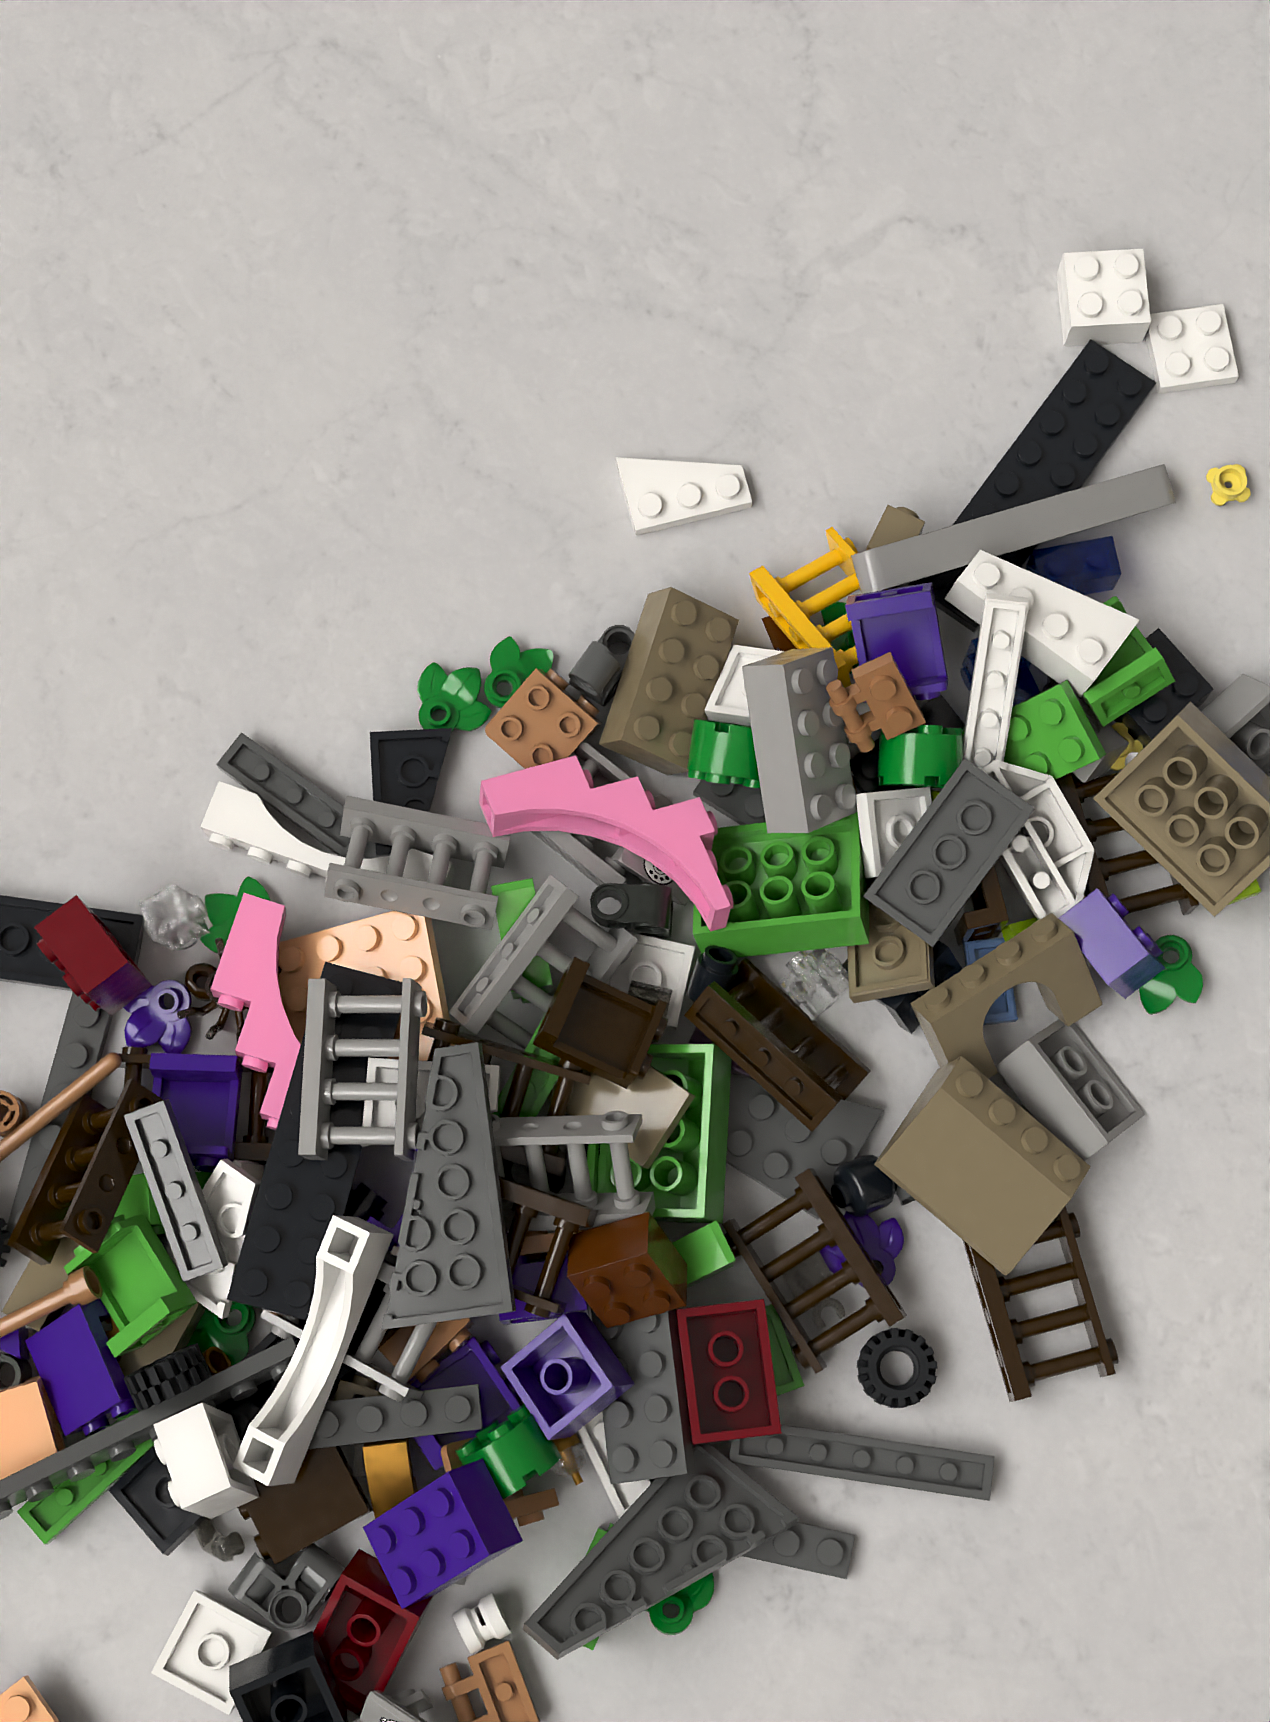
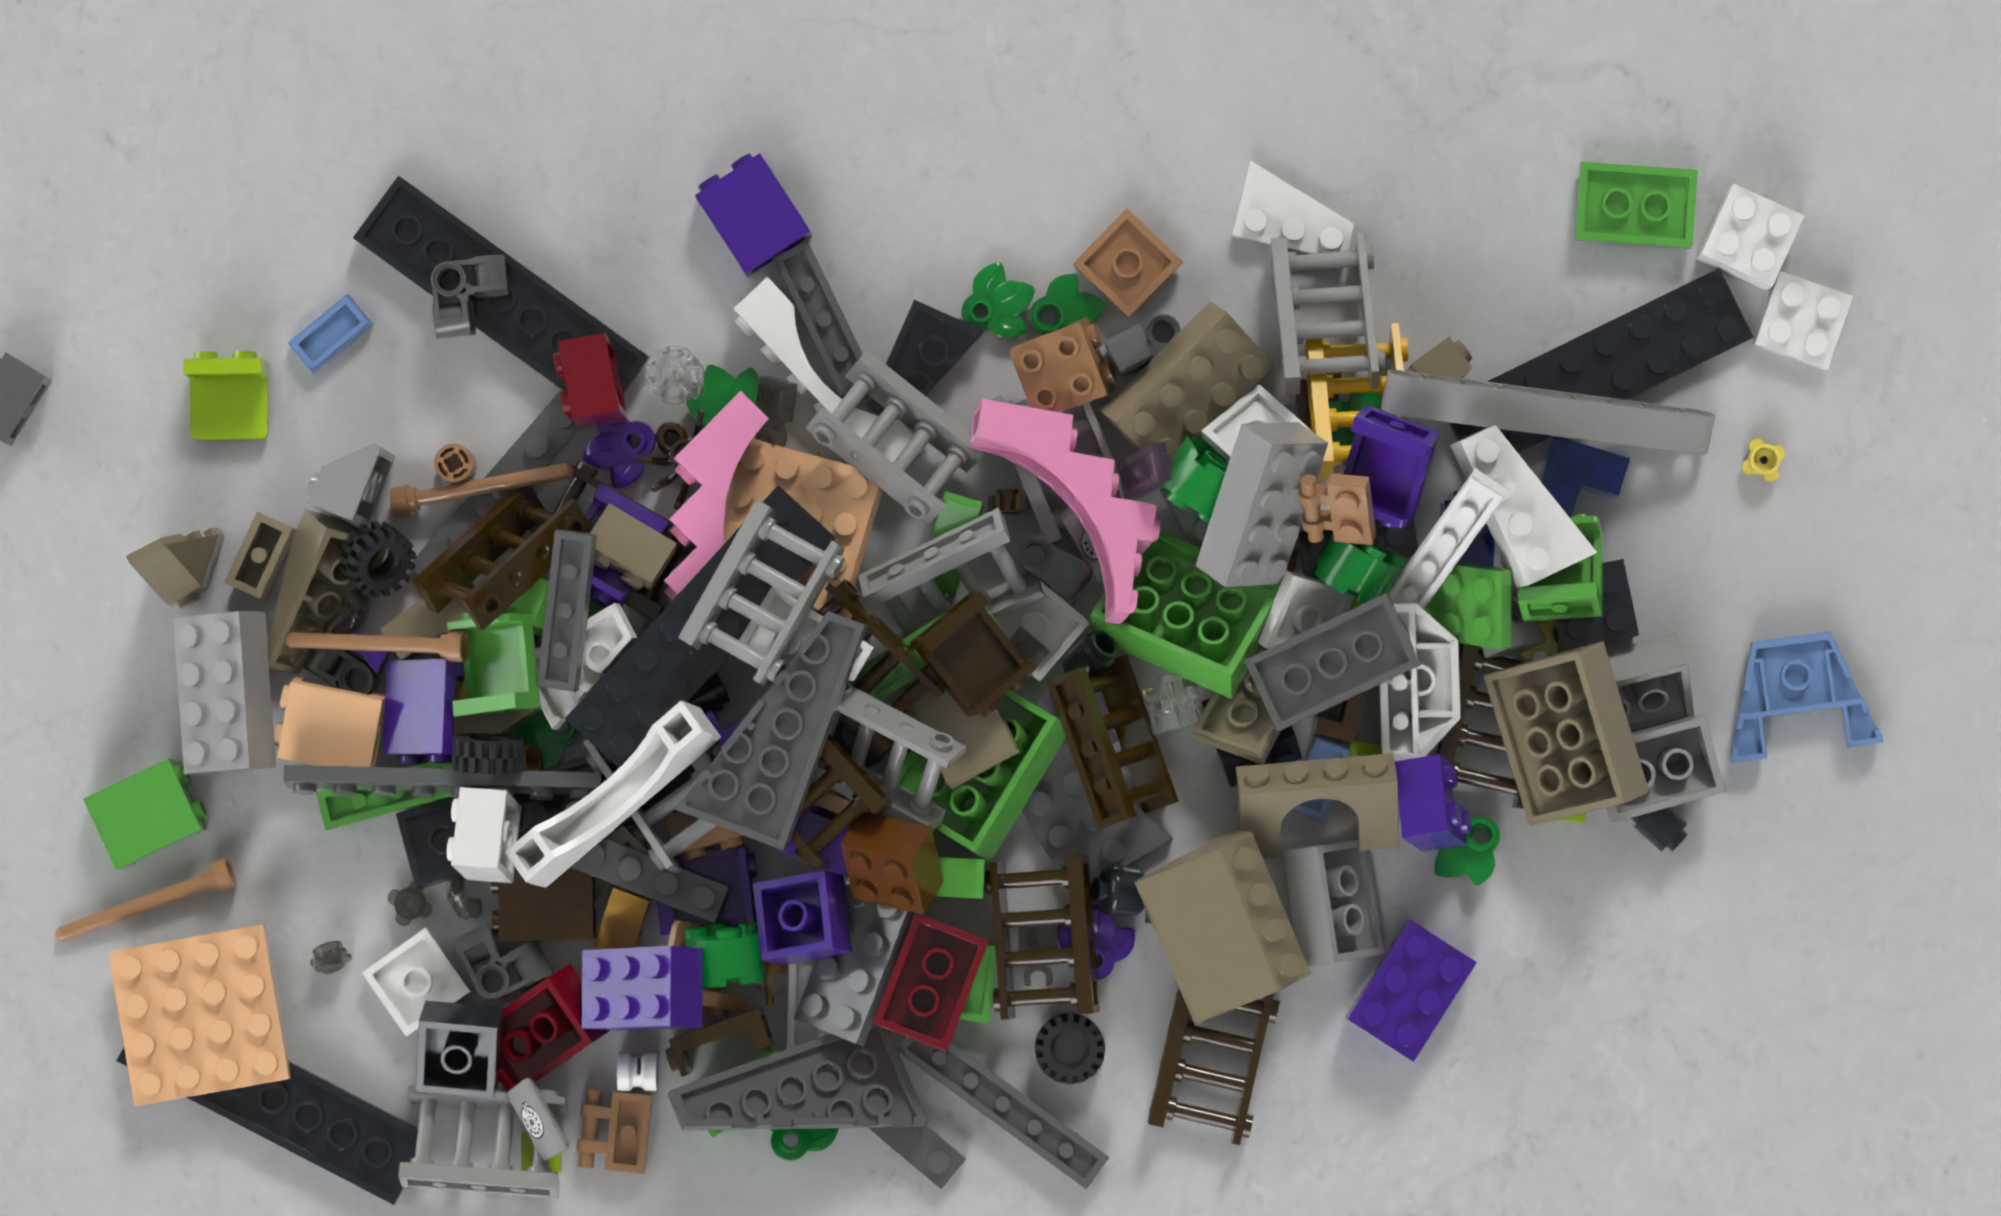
camera: 30 degrees right, 10 degrees up
(111, 1674) = (330, 957): none -> clear smoke plate
(167, 1587) = (404, 913): none -> clear smoke plate
(176, 733) = (752, 213): none -> dark purple panel
(212, 1099) = (631, 548): none -> dark tan brick
(290, 890) = (777, 402): none -> clear smoke plate
(552, 603) = (1127, 263): none -> medium nougat plate
(562, 869) = (1008, 501): none -> dark brown plate
(570, 1507) = (752, 1020): none -> dark brown panel
(672, 769) = (1145, 470): none -> clear purple plate
(740, 580) = (1293, 332): none -> light grey fence
(985, 323) = (1636, 205): none -> bright green plate
(1191, 1134) = (1410, 990): none -> dark purple brick

